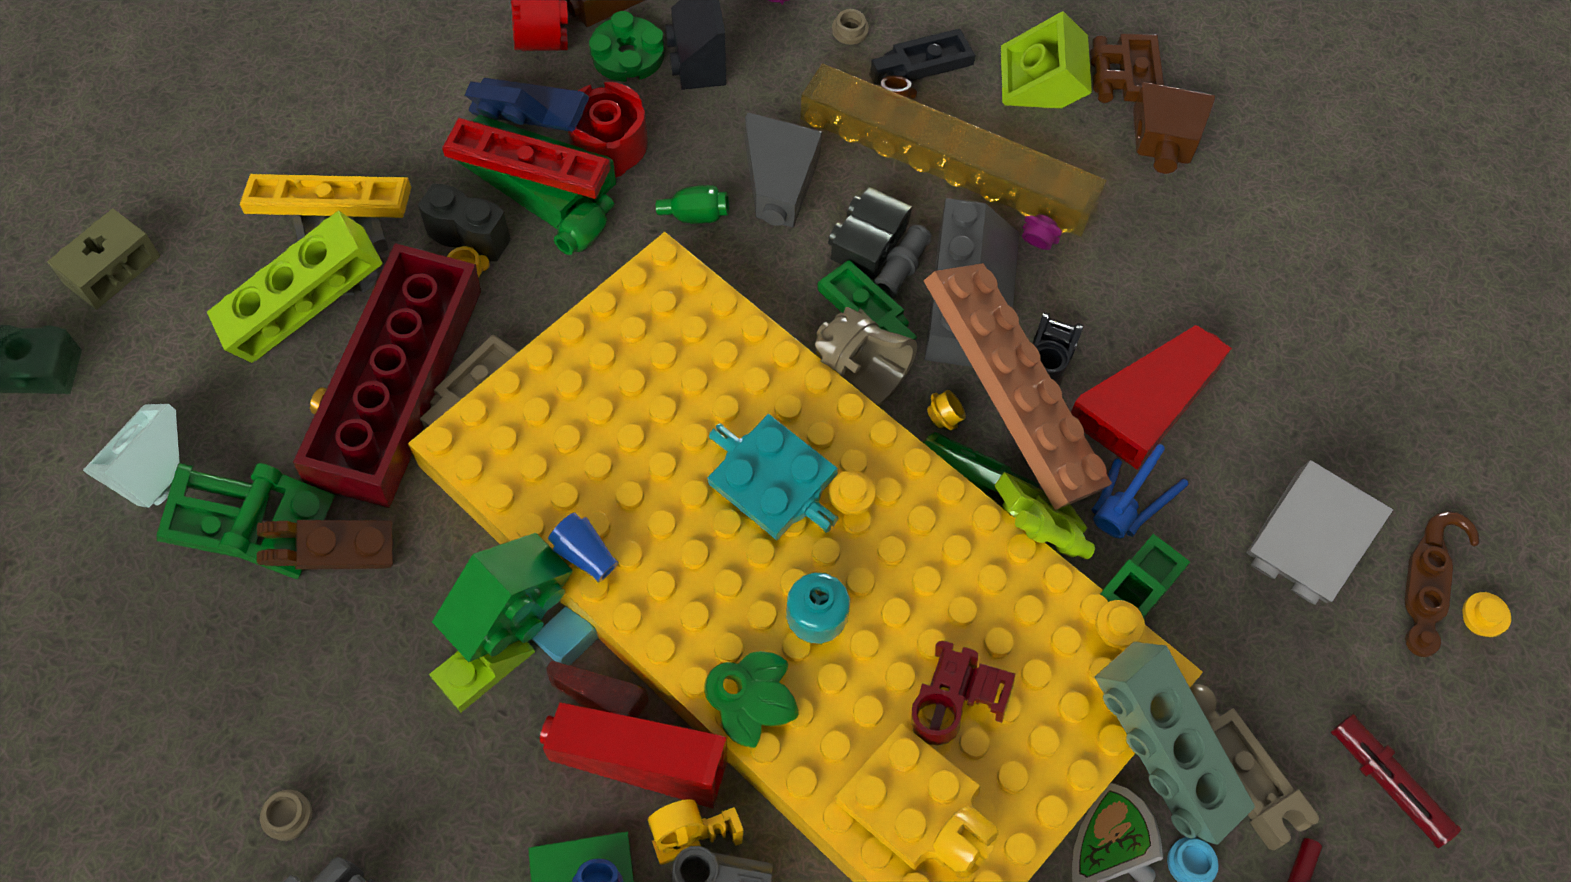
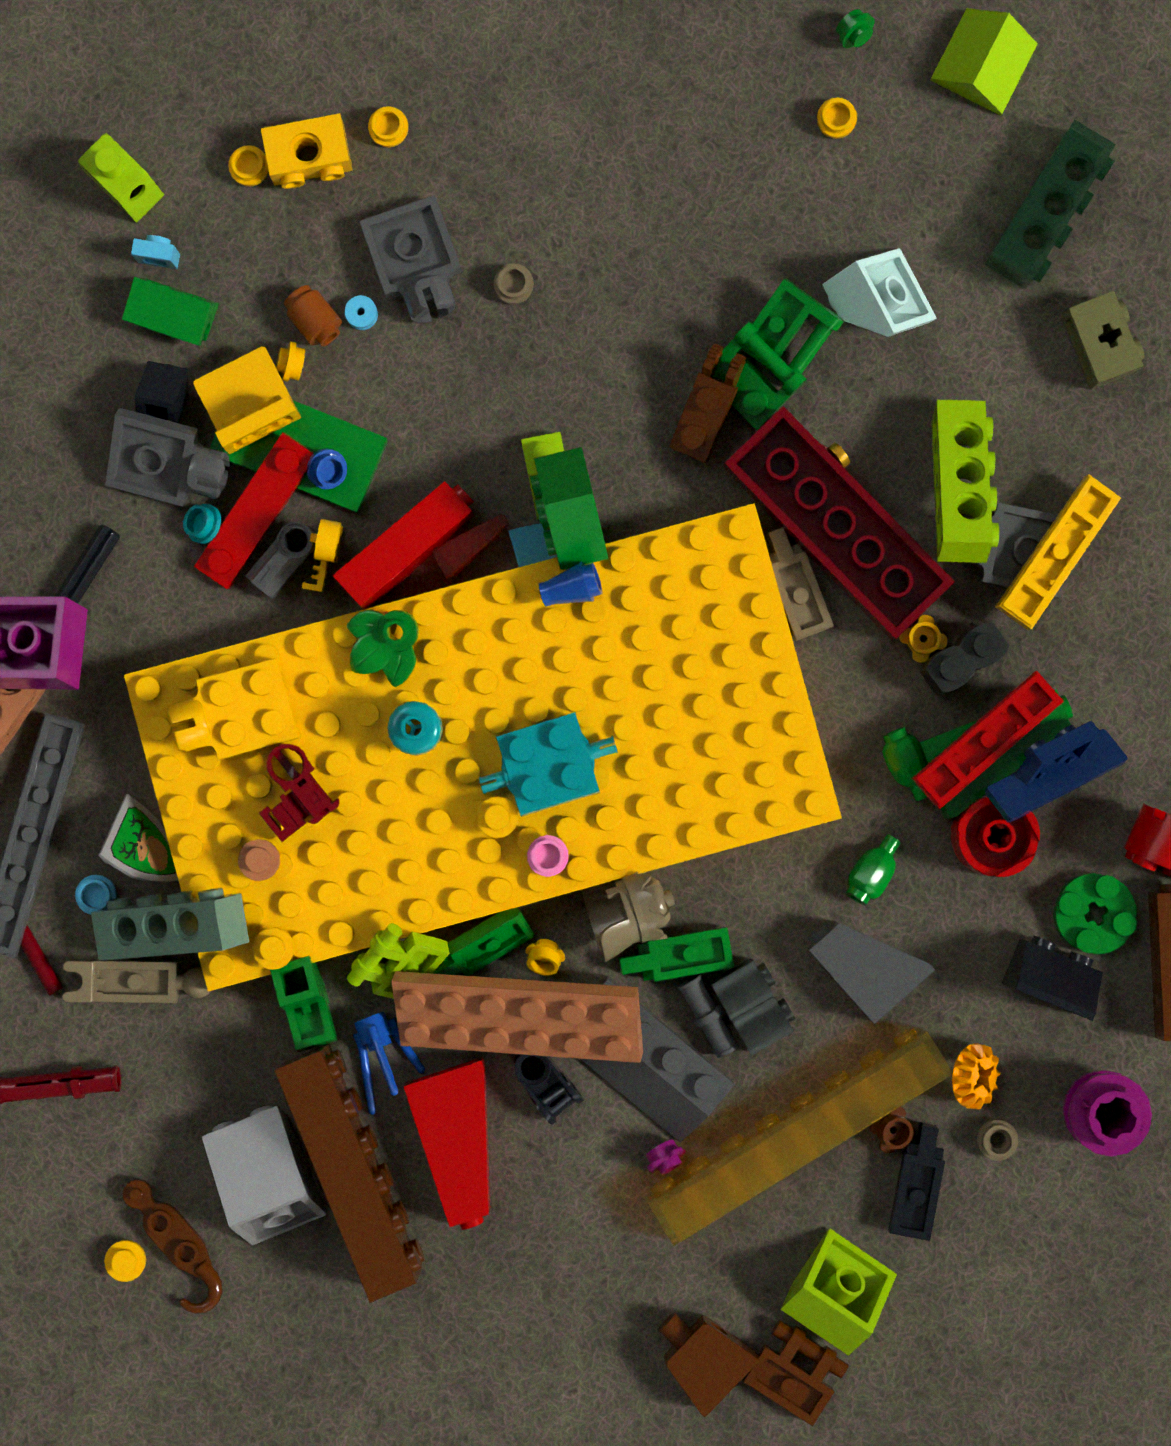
camera: 125 degrees right, 25 degrees up
(812, 56) = (965, 1074): none -> light orange gear
(857, 430) = (547, 855): none -> bright pink plate
(1047, 689) = (259, 860): none -> nougat plate
(1252, 452) = (350, 1172): none -> reddish brown brick

